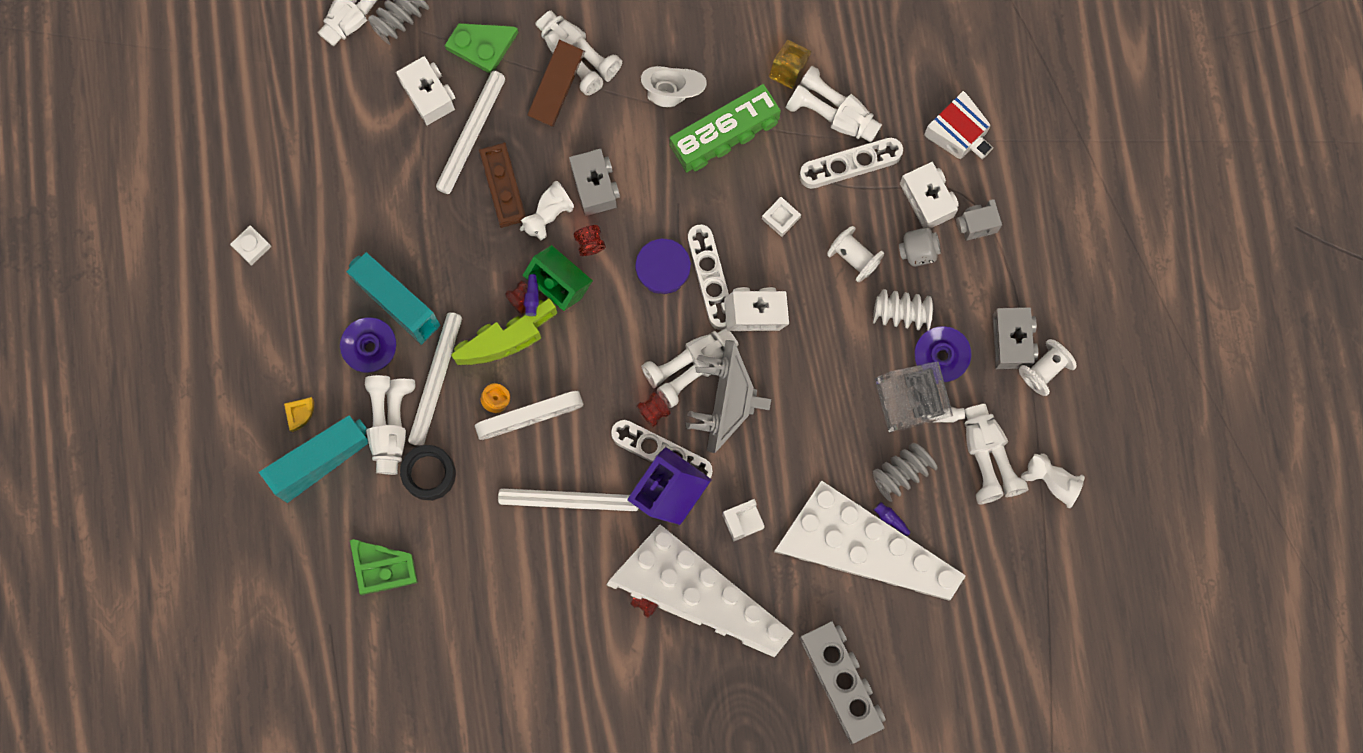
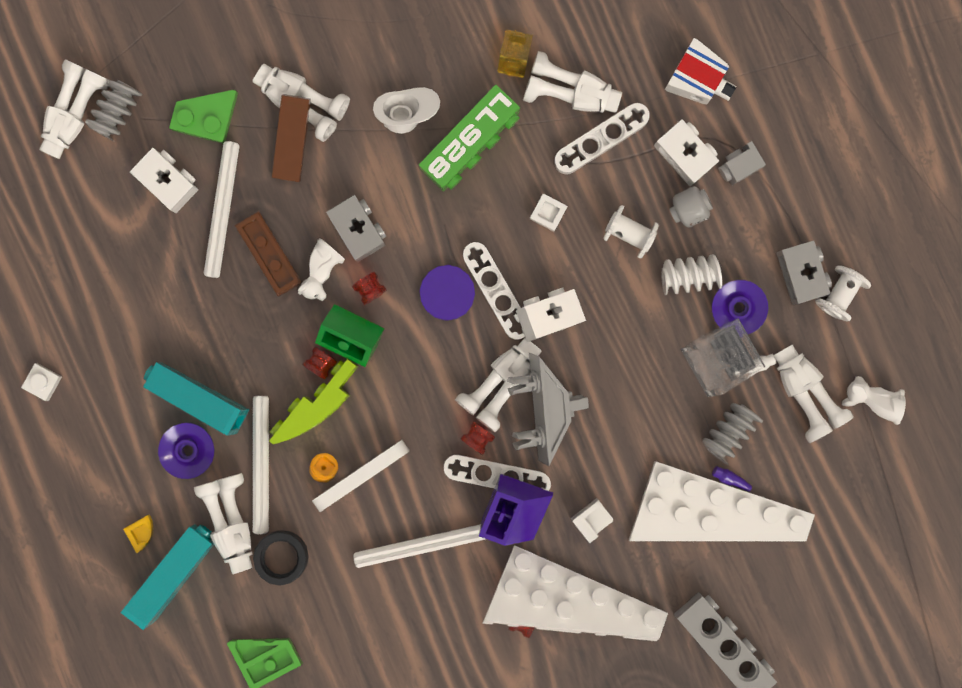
camera: 15 degrees left, 10 degrees up
(531, 298) = (331, 366): dark purple piece -> none

